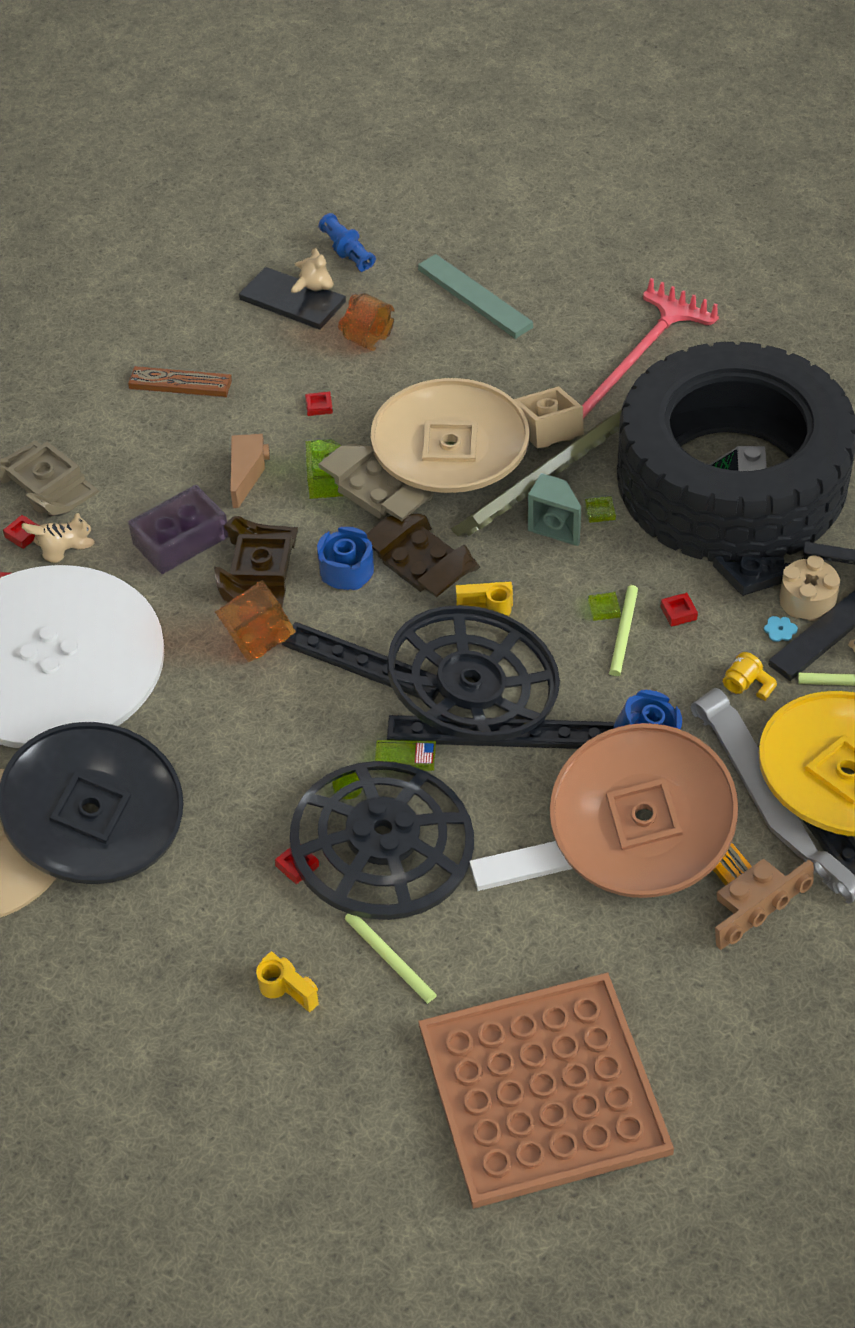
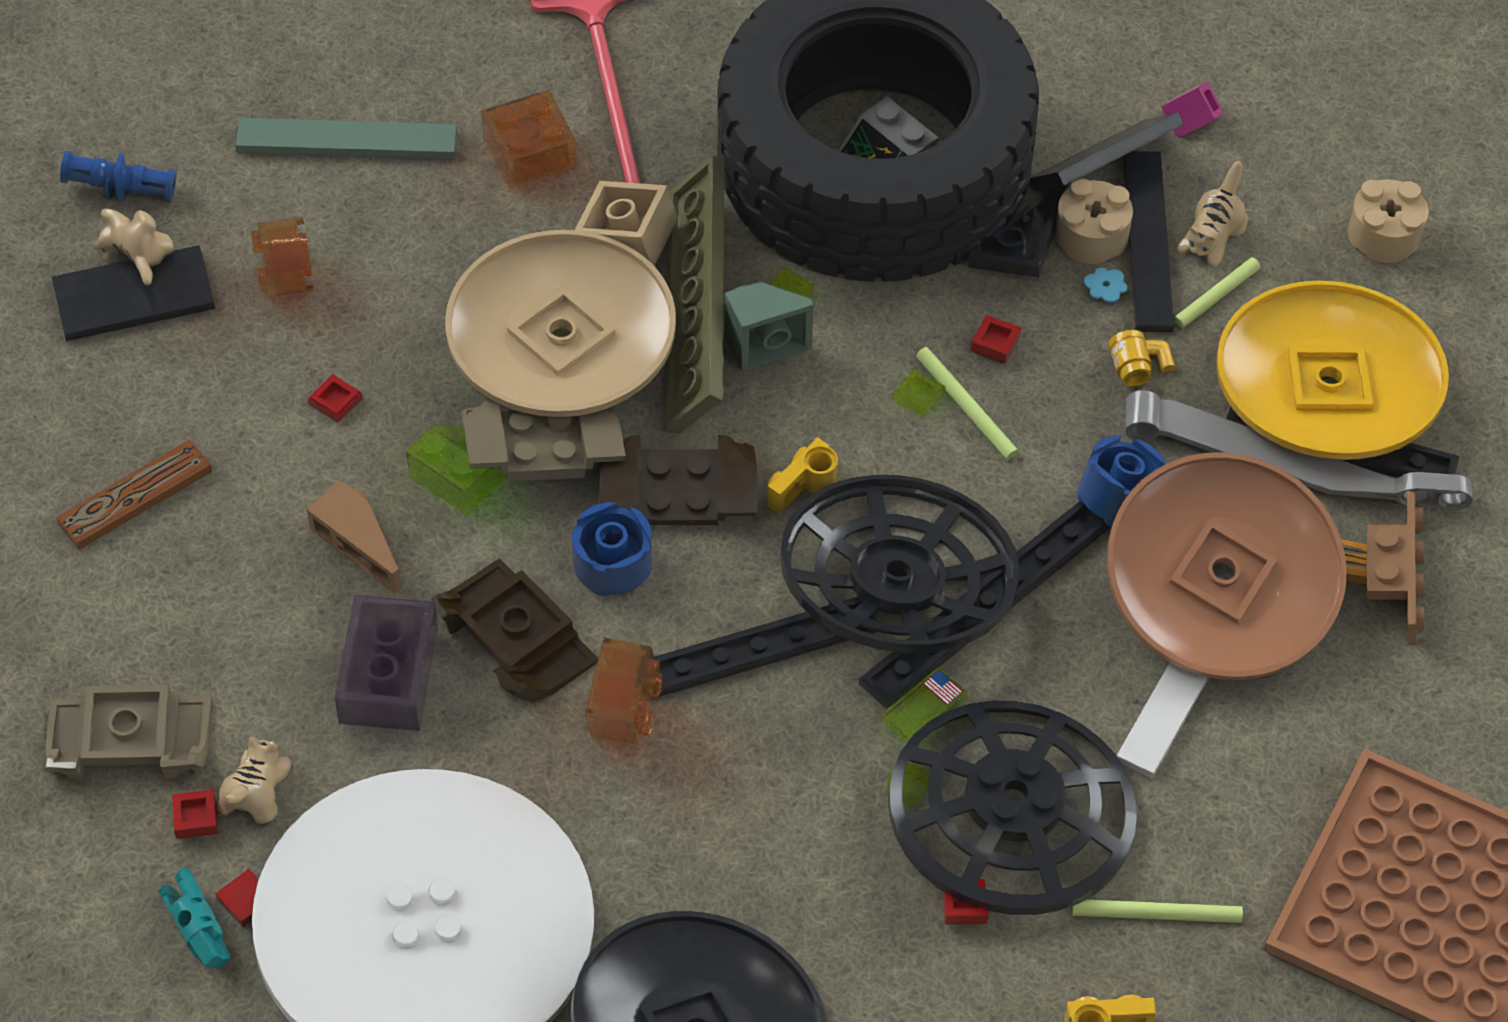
camera: 50 degrees left, 5 degrees up
(556, 349) = (529, 138): none -> clear orange brick

